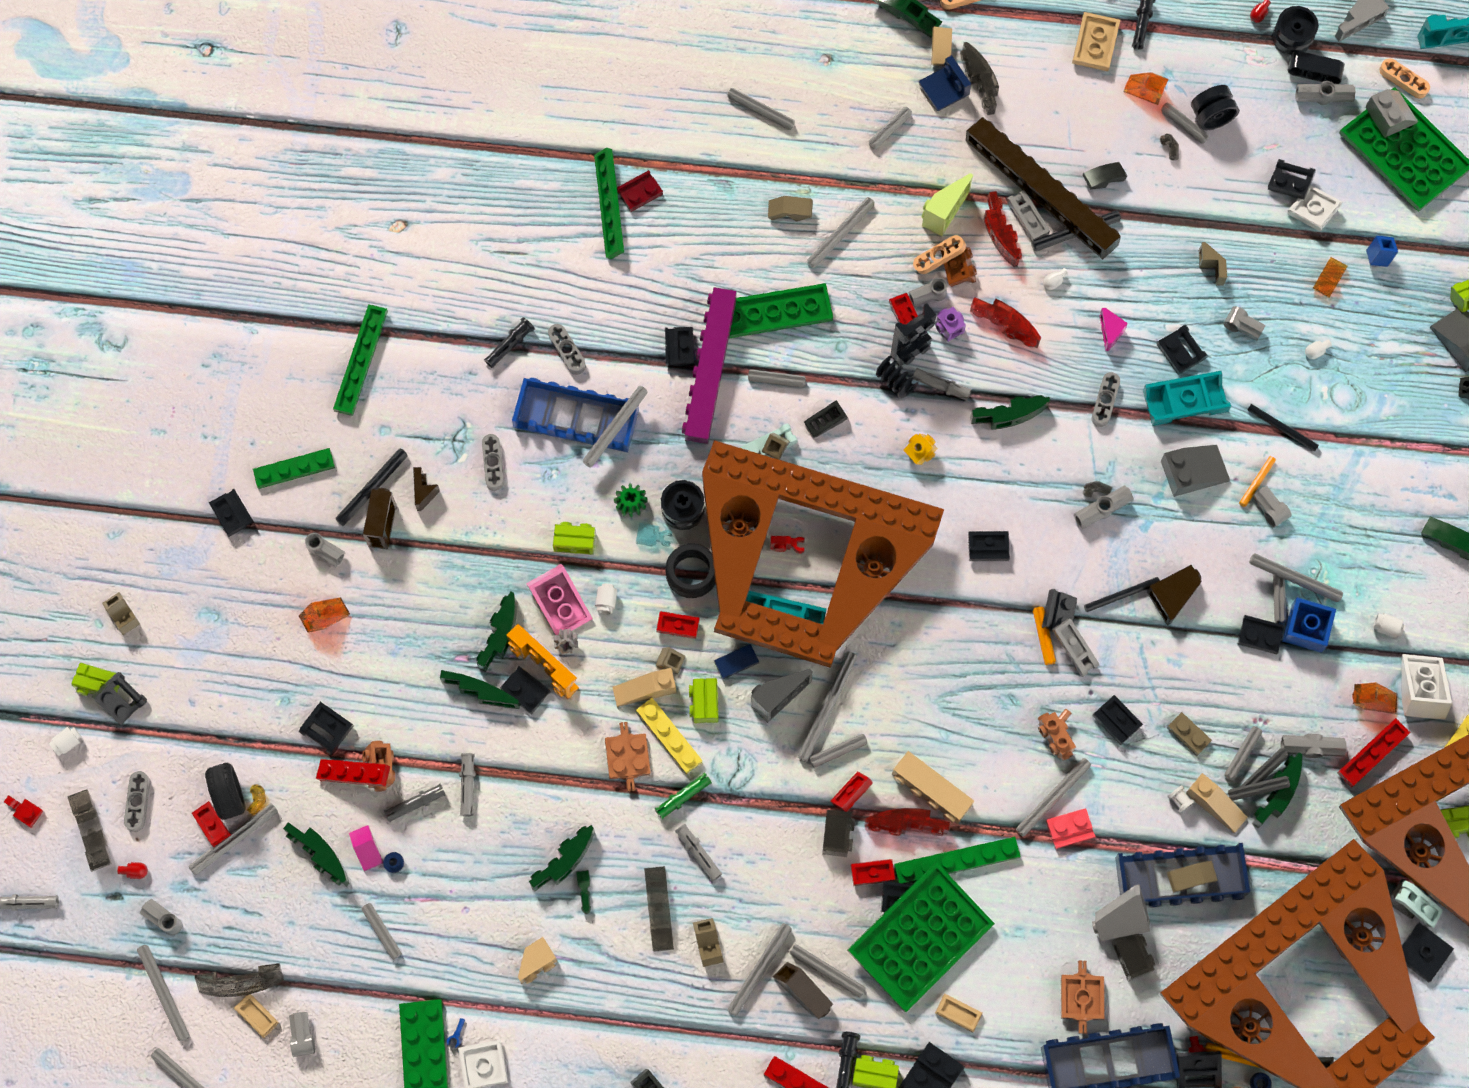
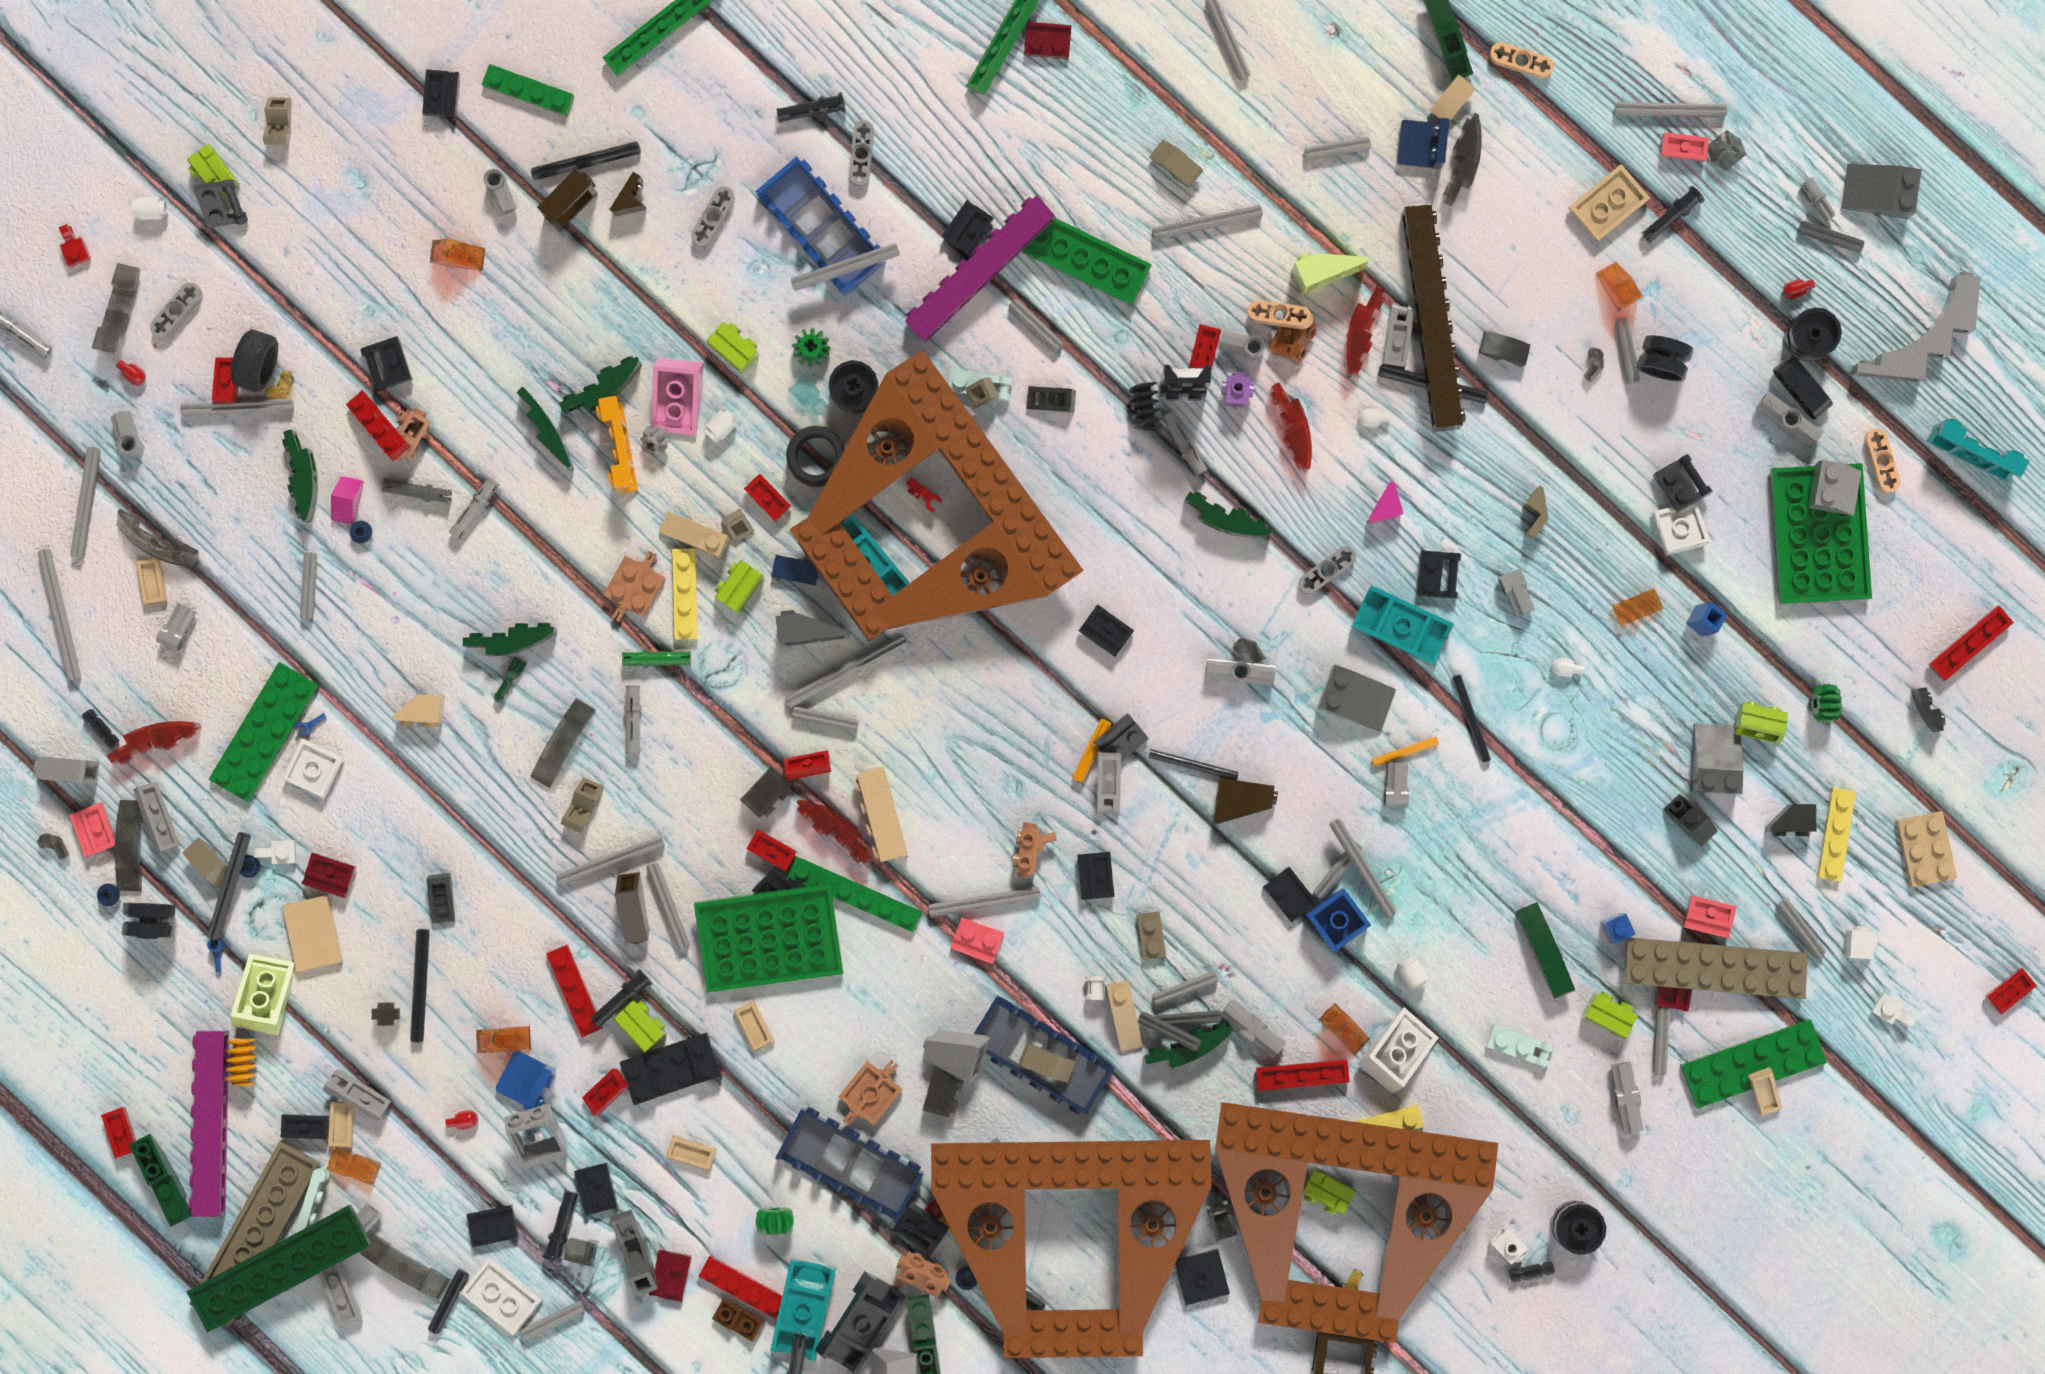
camera: 40 degrees right, 15 degrees up
(525, 689) = (588, 457): black plate -> none
(921, 448) = (1114, 493): yellow brick -> none
(1419, 904) = (1226, 1235): light aqua plate -> none

